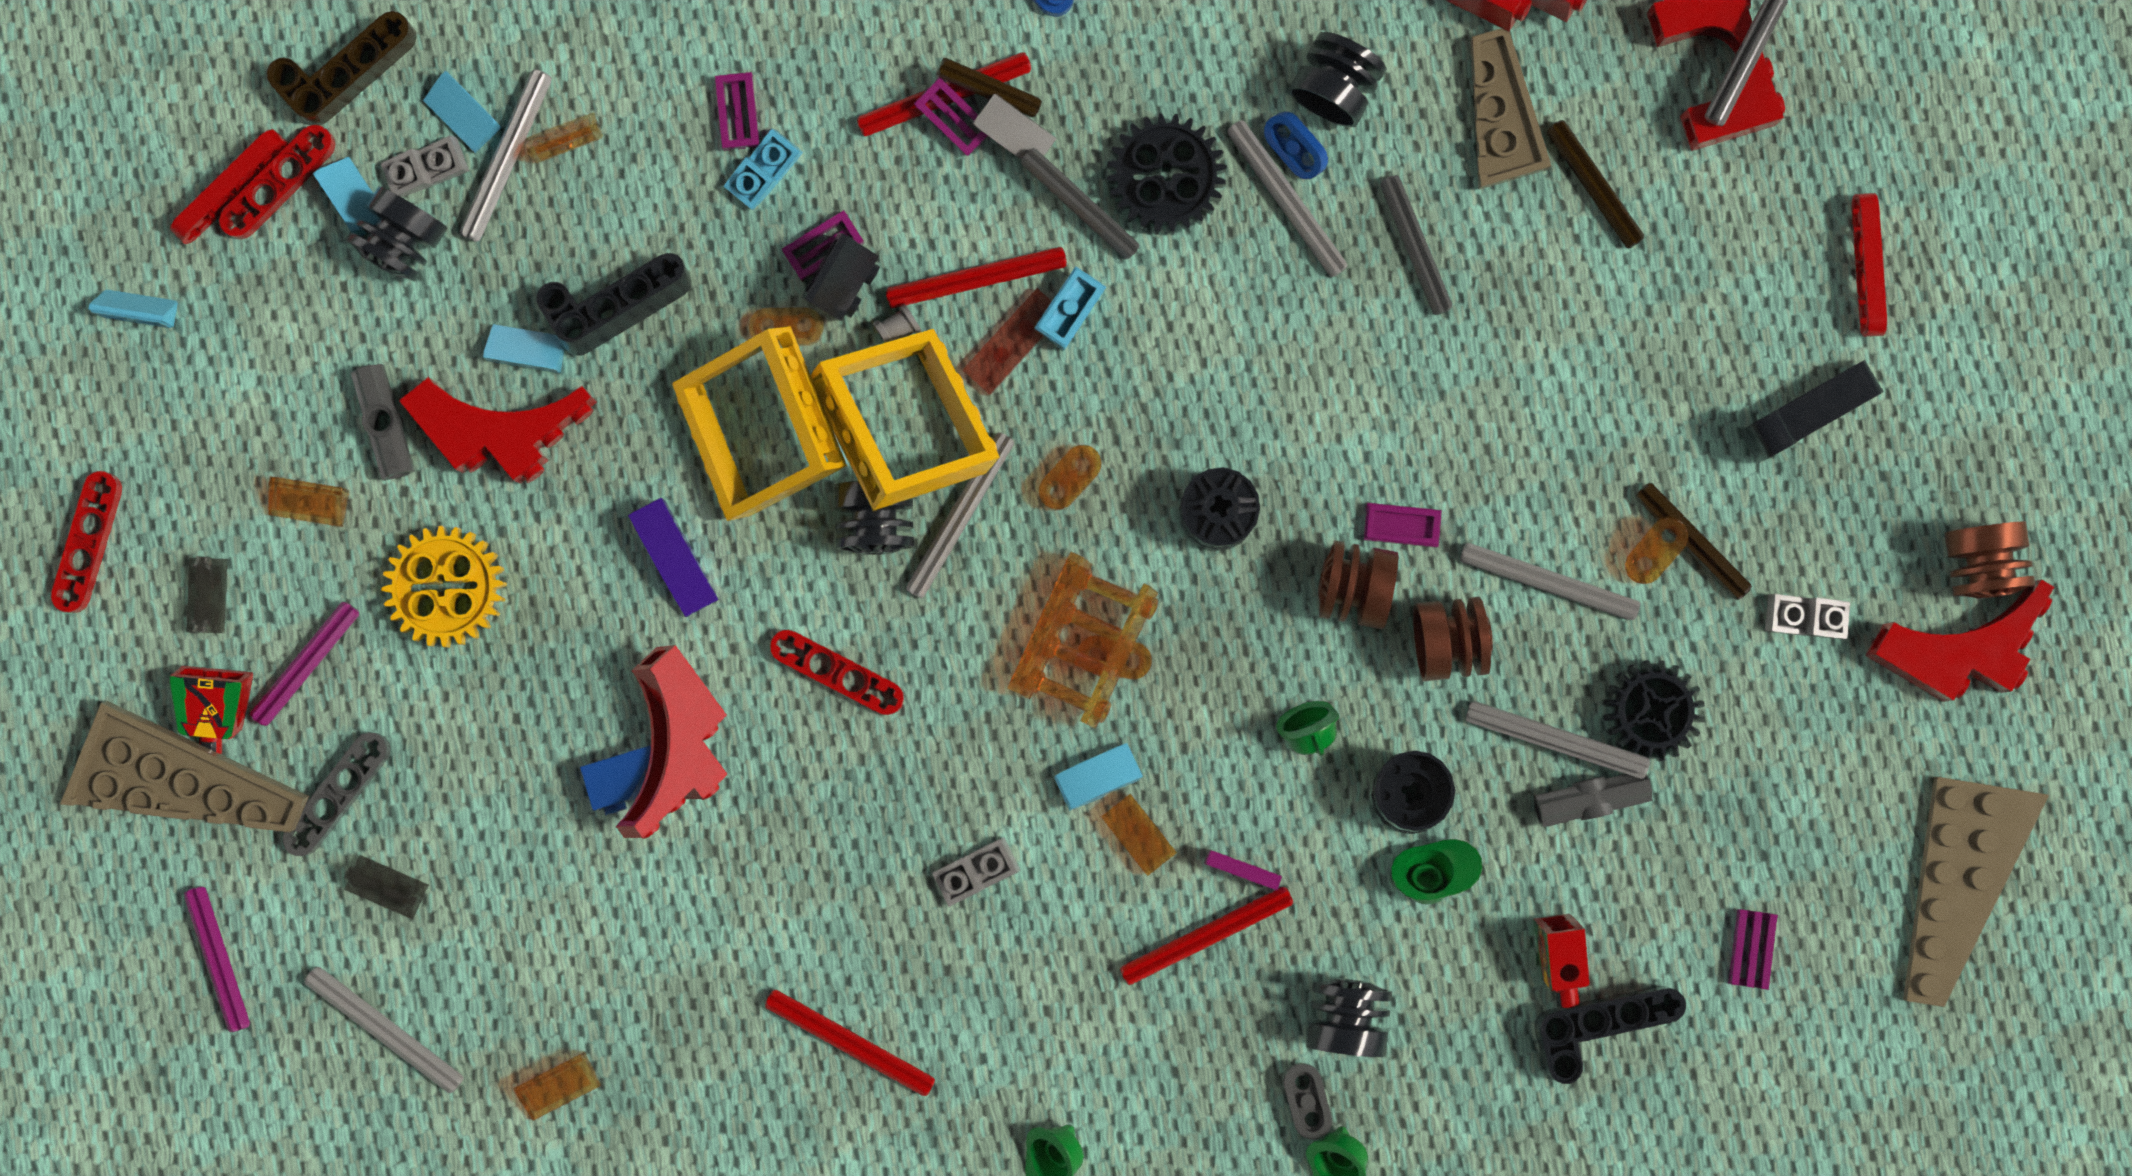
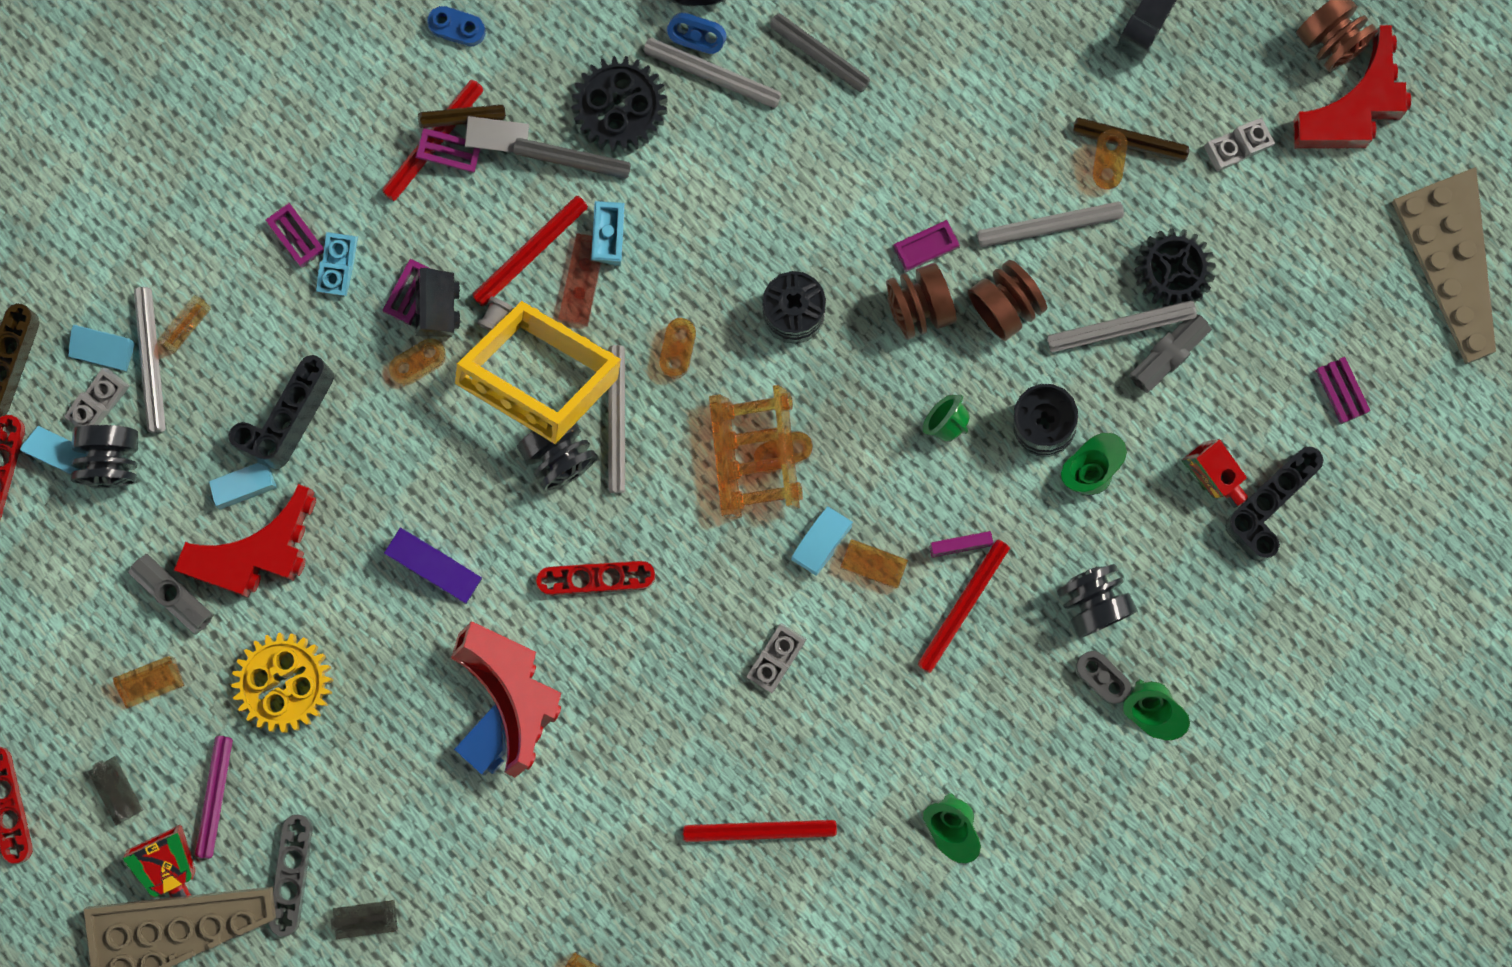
camera: 25 degrees left, 5 degrees down
(801, 404) = (464, 403): yellow window -> none

